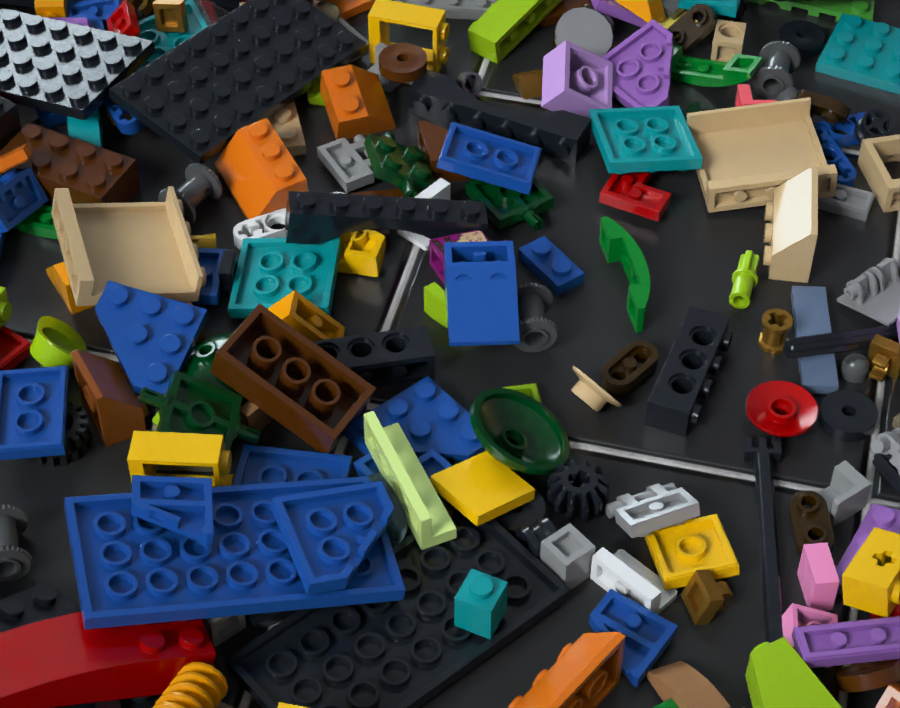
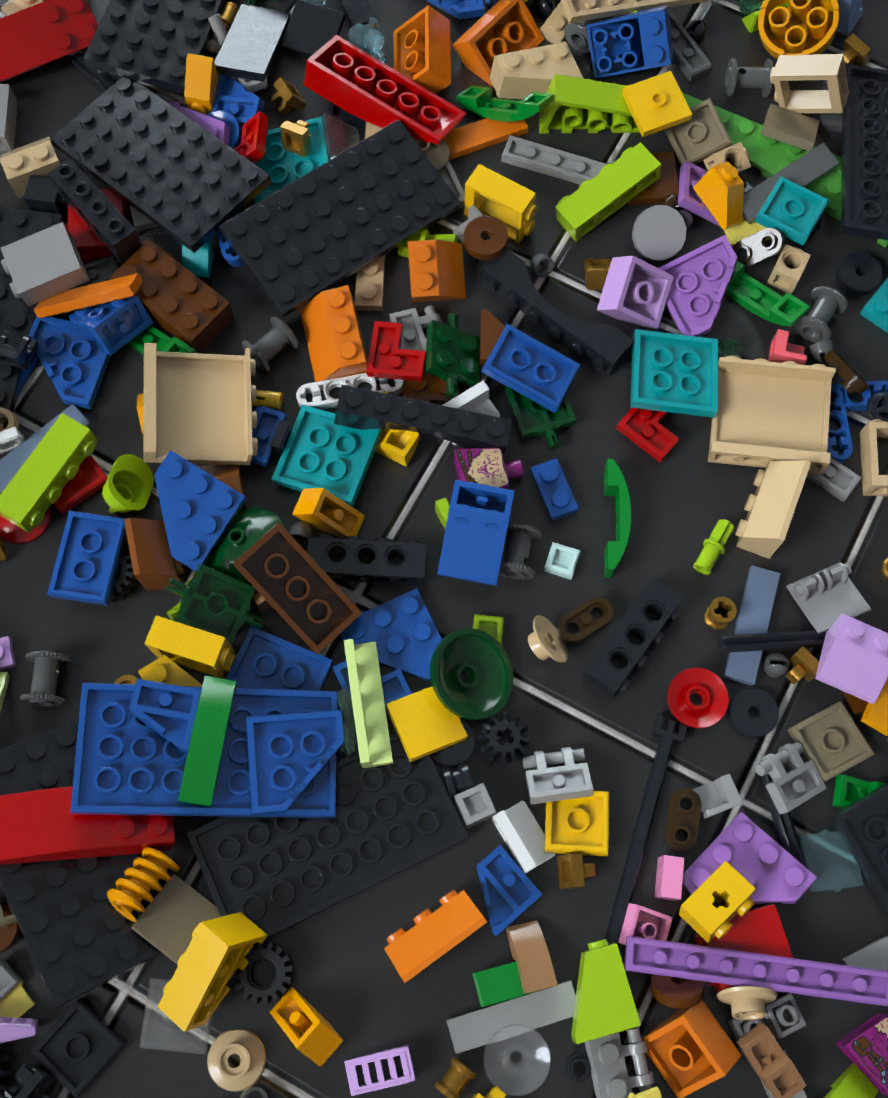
camera: 15 degrees right, 25 degrees up
(233, 535) = (207, 741): none -> green slope
(327, 176) = (387, 358): none -> red plate
(480, 603) = (389, 844): teal brick -> none
(583, 324) = (562, 560): none -> light aqua tile

